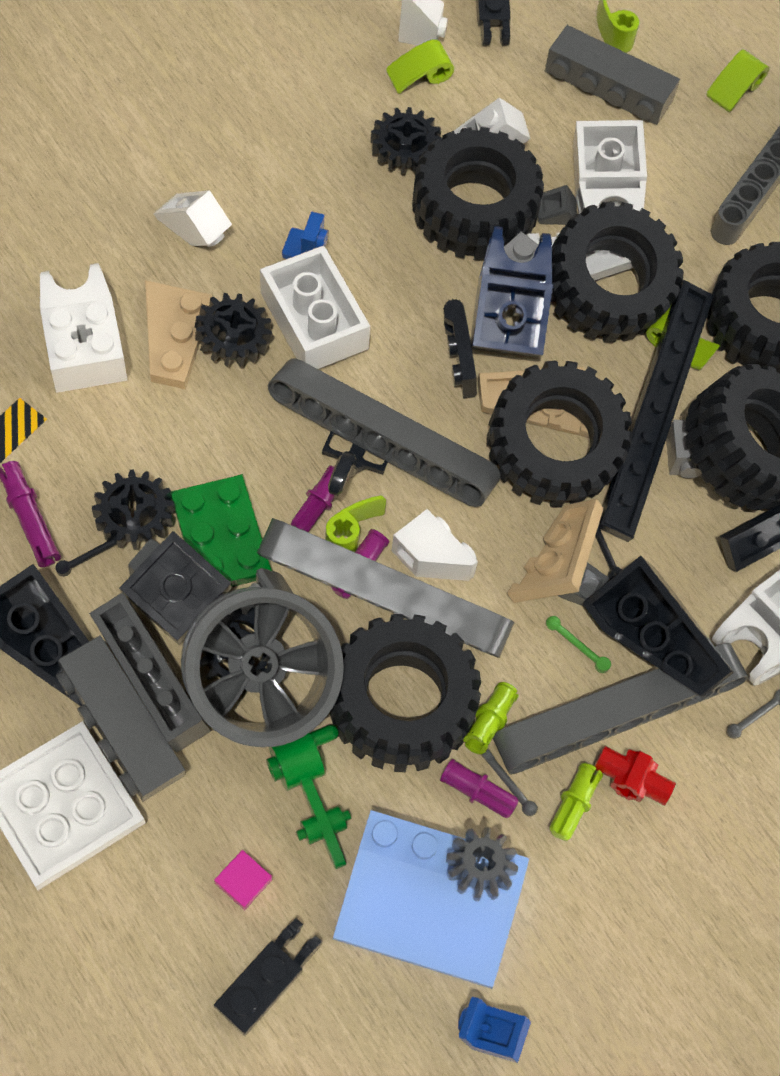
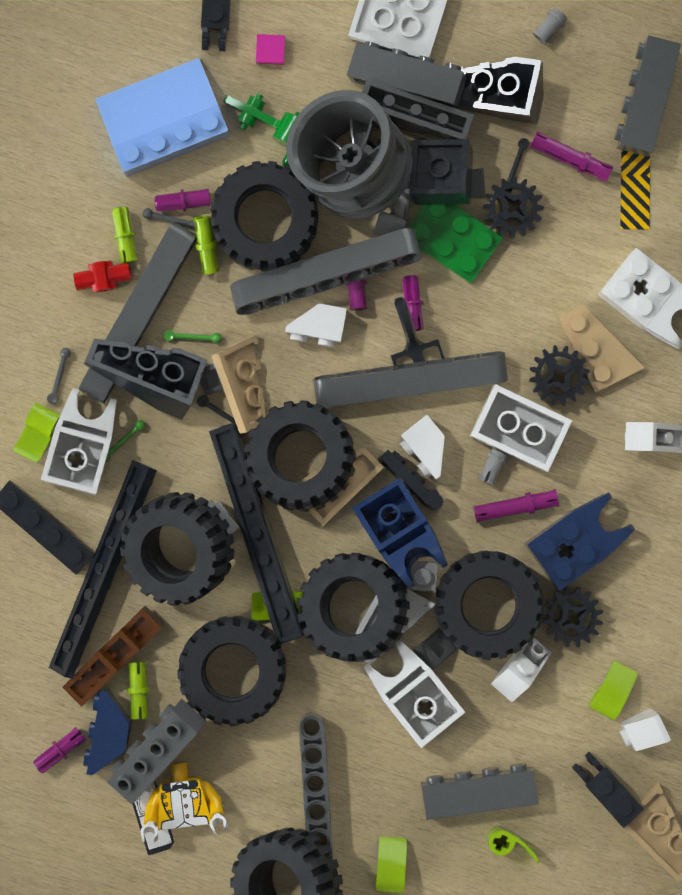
camera: 150 degrees right, 25 degrees up
(304, 240) = (570, 478): blue bracket -> none
(346, 186) = (584, 535): none -> dark blue brick
(346, 521) = (384, 299): lime panel -> none
(367, 254) = (515, 506): none -> magenta pin
(374, 302) = (494, 465): none -> light grey pin
(418, 368) = (427, 444): none -> white slope
(492, 876) = (135, 148): dark grey gear -> none
(493, 1030) = (77, 73): blue bracket -> none
(703, 600) = (139, 426): none -> bright green hinge

